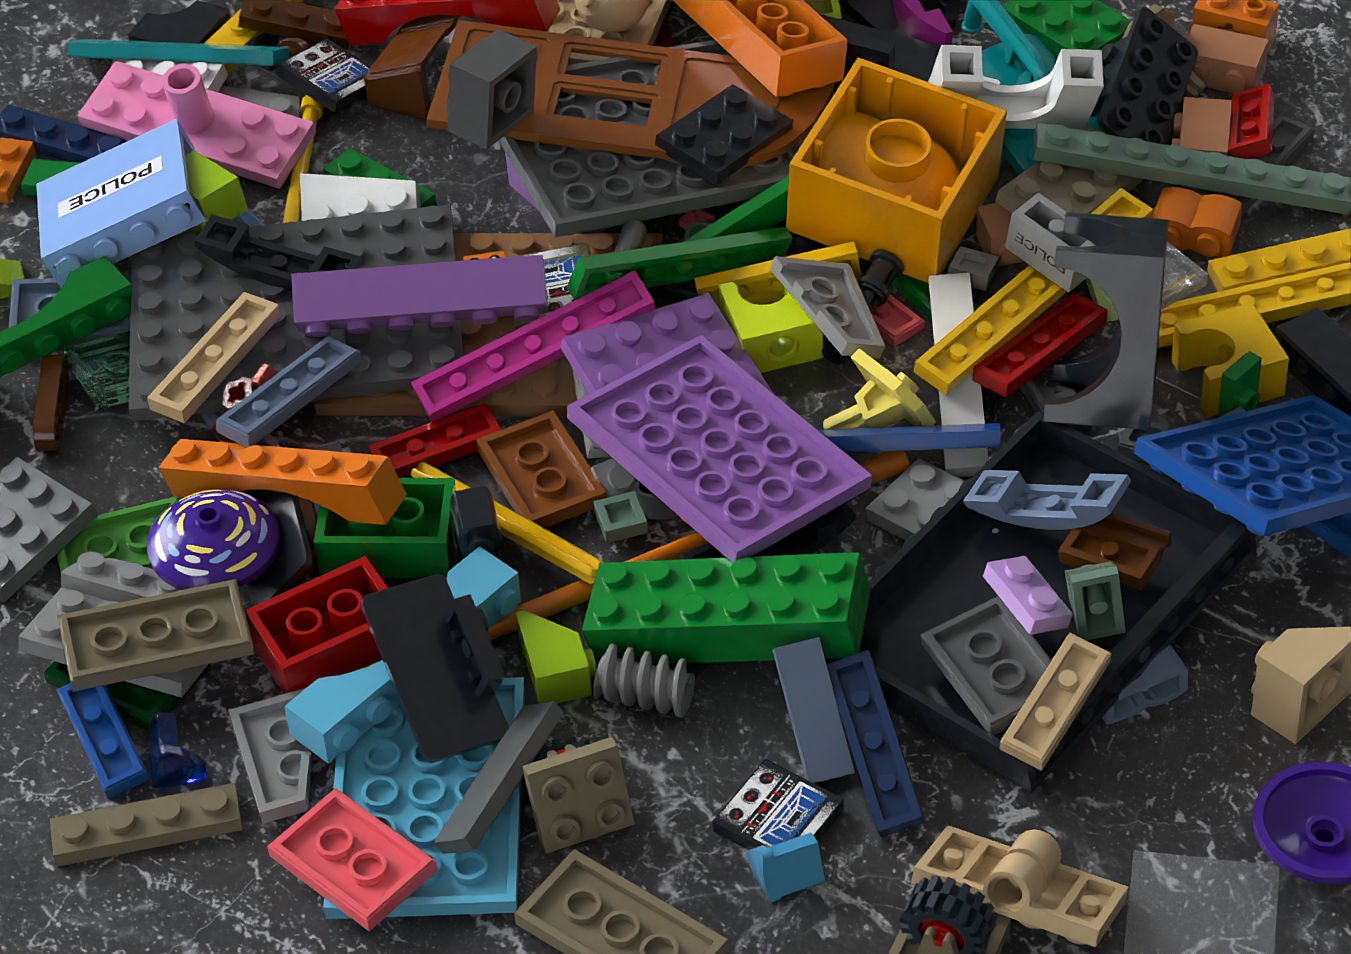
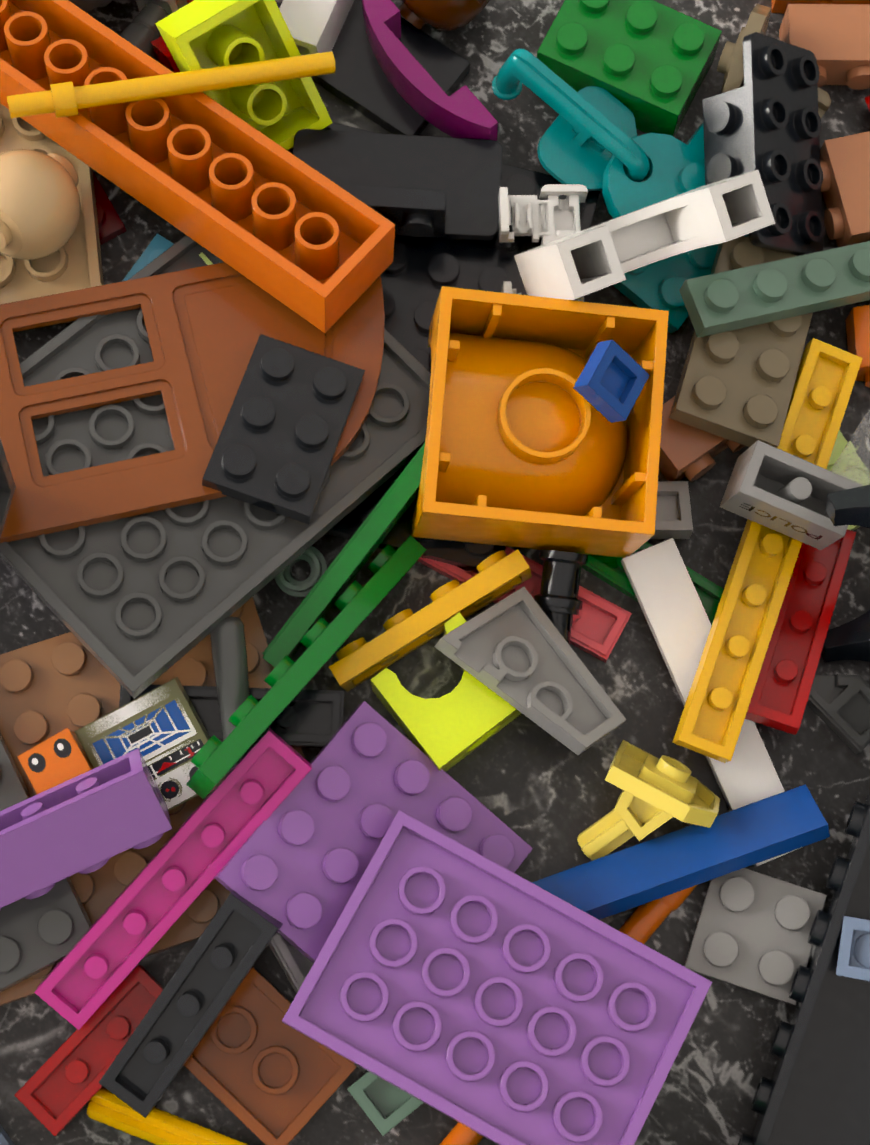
camera: 25 degrees left, 30 degrees up
(511, 411) = (190, 1003): none -> black plate
(950, 134) = (611, 381): none -> blue plate

